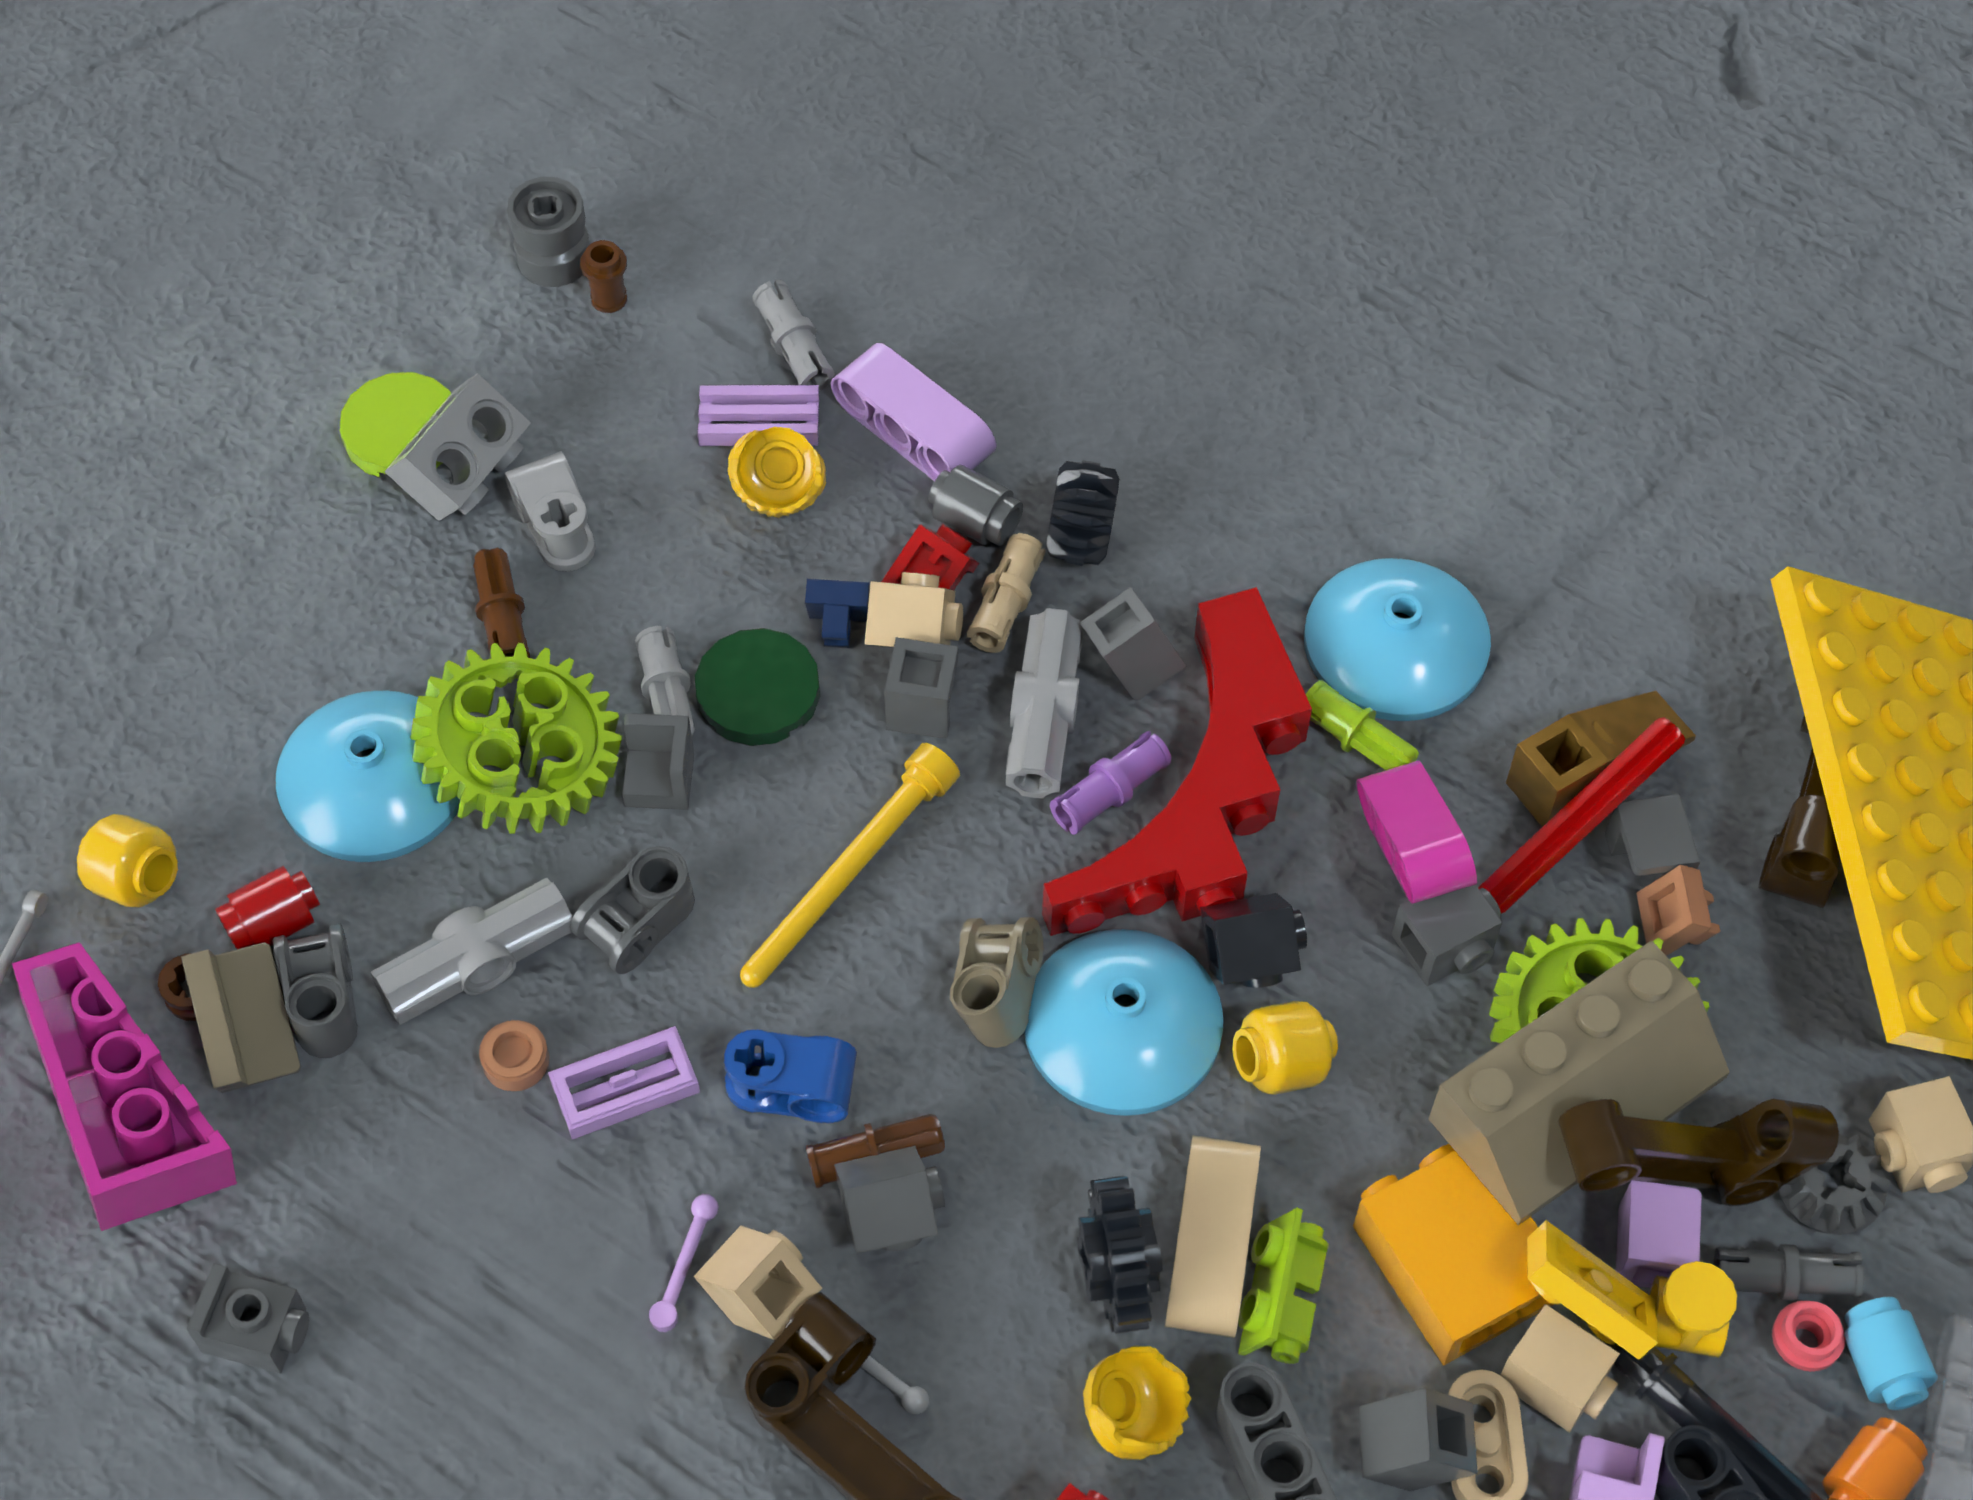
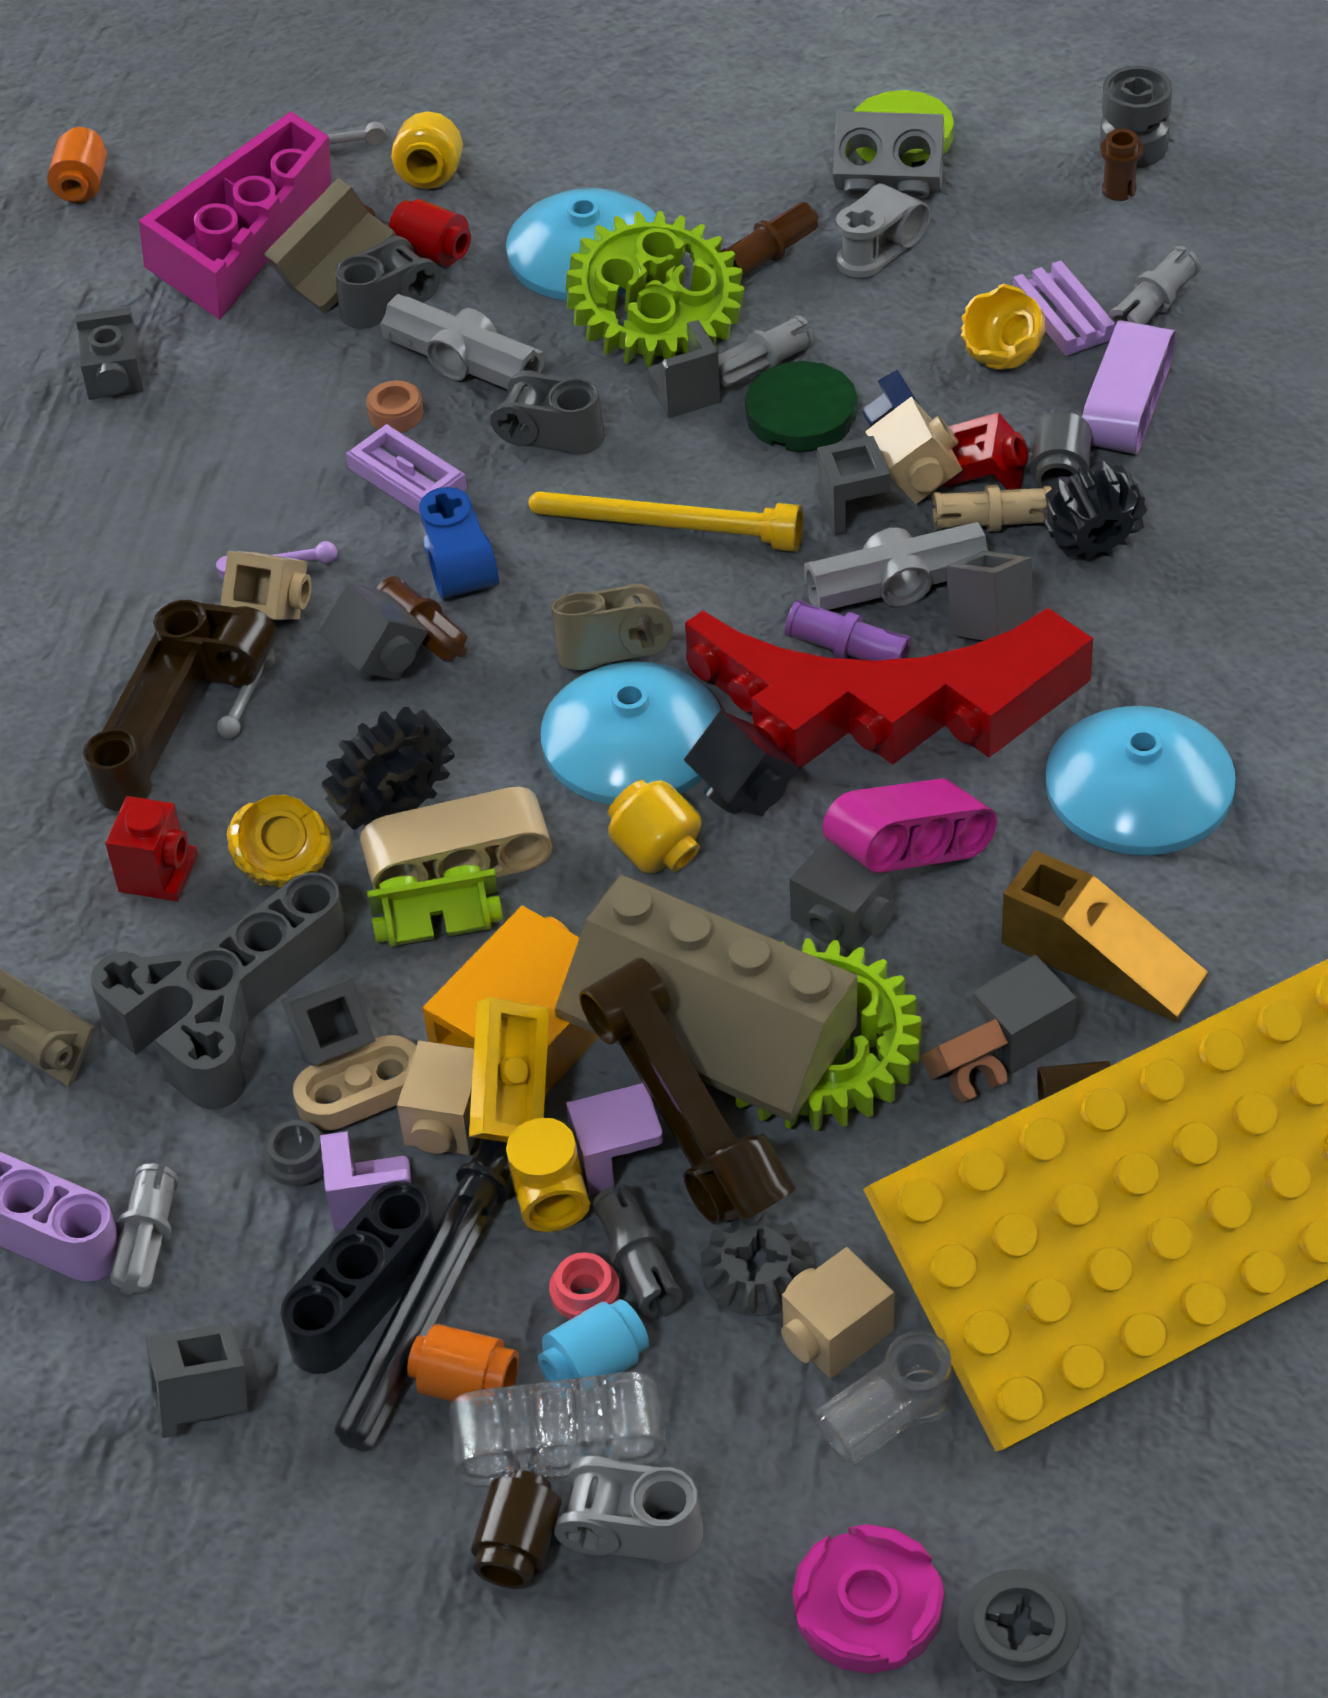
camera: 70 degrees right, 10 degrees down
(1358, 728) = (1015, 773): lime axle -> none
(1584, 812) = (1006, 933): red axle -> none

